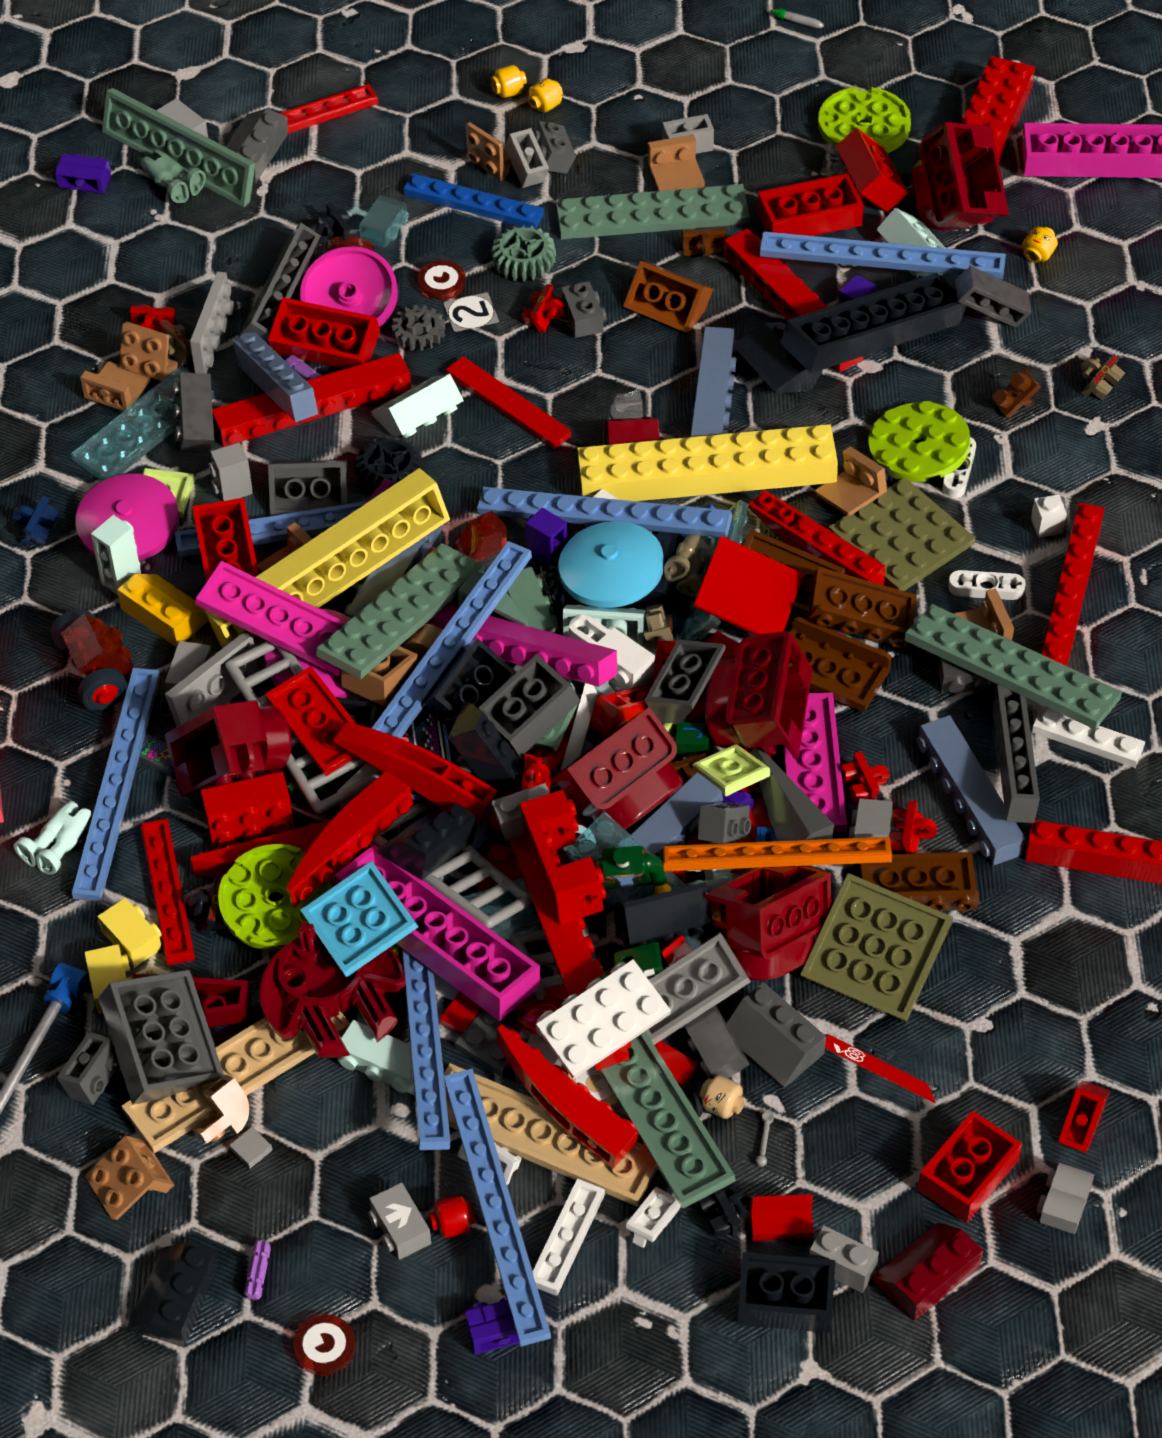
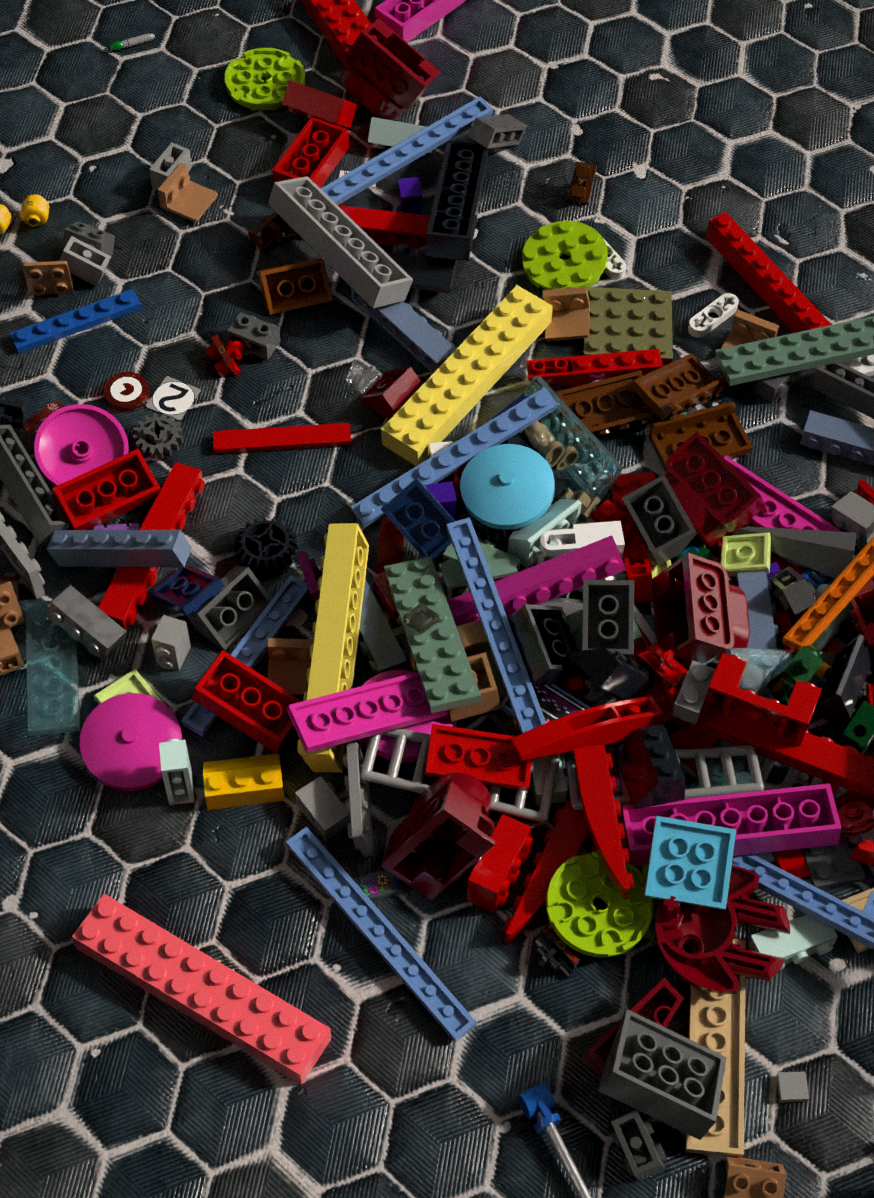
camera: 50 degrees left, 5 degrees up
(33, 529) = (64, 803): dark blue hips -> none
(63, 829) = (389, 1002): light aqua piece -> none
(97, 654) = (251, 854): brick -> none
(105, 967) = (560, 1071): light yellow brick -> none
(127, 926) = (529, 1025): light yellow brick -> none
(167, 892) = (509, 973): red tile -> none
(230, 1109) = (760, 1078): brick -> none
(288, 445) = (186, 589): none -> dark blue plate
(383, 221) = (35, 382): clear light blue brick -> none
(400, 590) = (421, 618): none -> clear smoke tile
(419, 406) = (228, 489): light aqua slope -> none
(505, 519) = (420, 519): none -> dark blue plate
(523, 253) = (163, 334): sand green gear -> none
(652, 211) = (204, 239): sand green plate -> none
(726, 282) = (340, 242): none -> light grey brick
(748, 589) = (611, 430): red piece -> none
(831, 167) = (276, 110): clear piece -> none
(868, 778) = (817, 494): red hips -> none
(1039, 244) = (471, 80): yellow head -> none
(1048, 516) = (695, 243): white brick -> none
(1092, 369) = (610, 137): dark tan hips -> none

